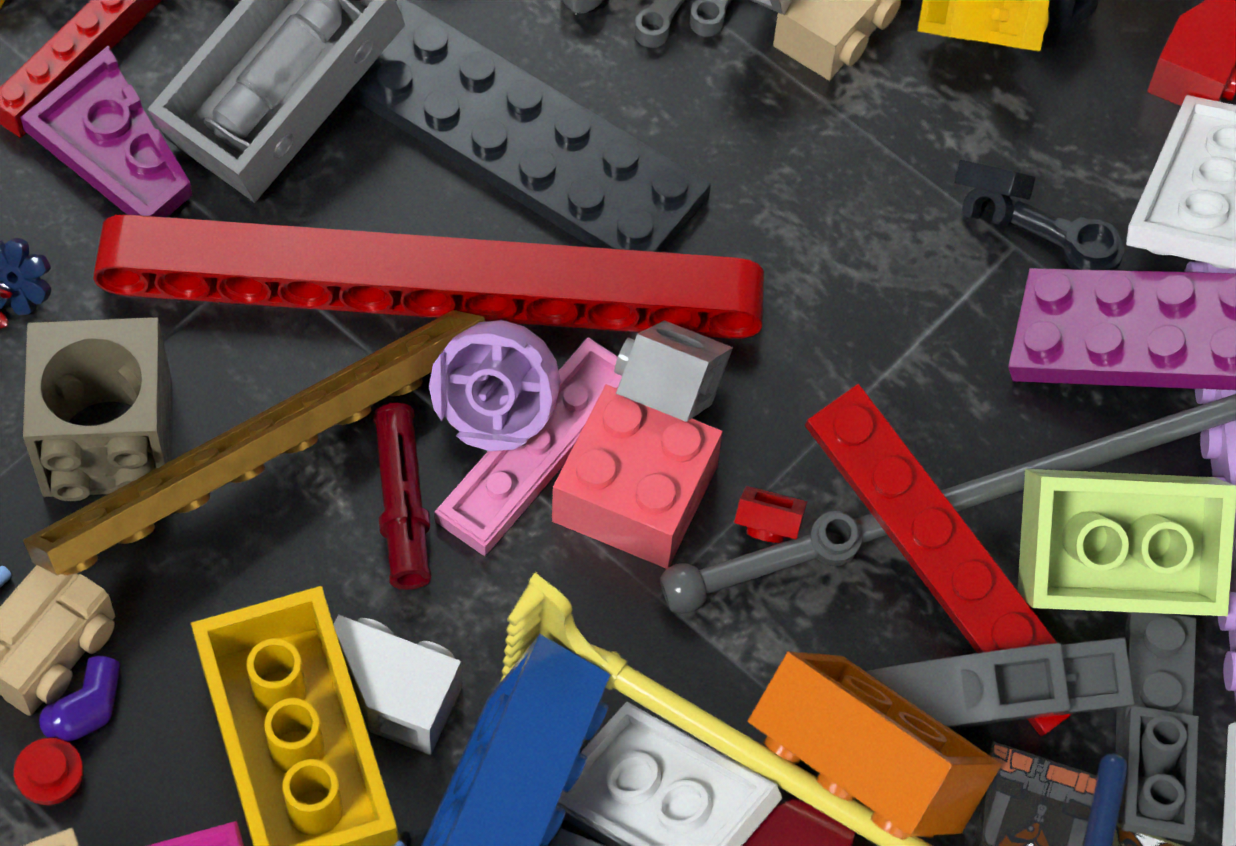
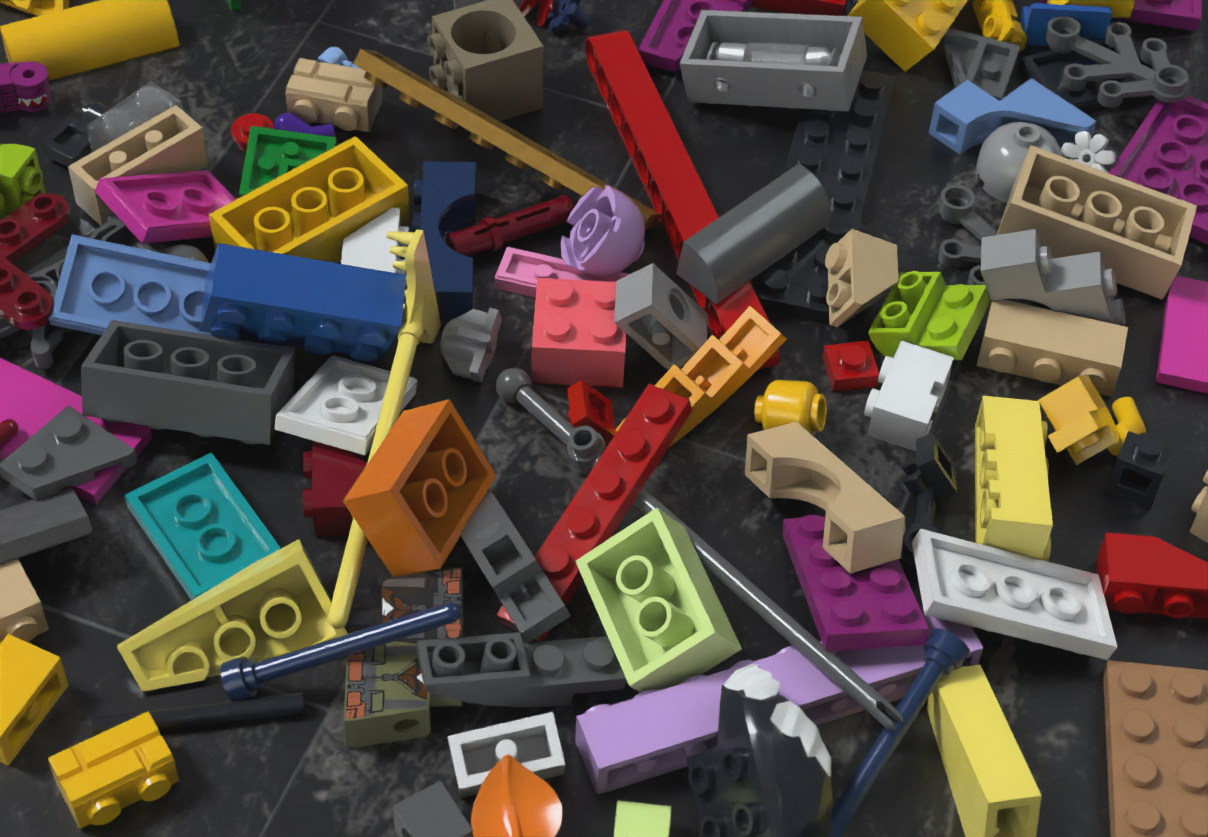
camera: 70 degrees right, 10 degrees down
(131, 754) = (276, 152): none -> green plate
(459, 610) = (447, 205): none -> dark blue arch
(583, 213) = (755, 234): none -> dark grey brick
(605, 607) = (471, 342): none -> light grey piece
(690, 134) = (858, 274): none -> tan slope
(774, 89) = (929, 315): none -> lime brick
(782, 368) = (721, 366): none -> light orange slope
(789, 205) = (850, 366): none -> red plate
(852, 293) = (791, 402): none -> yellow head
(872, 164) = (909, 395): none -> white brick
(952, 317) = (859, 522): none -> tan arch
(1052, 118) = (1012, 478): none -> light yellow wedge

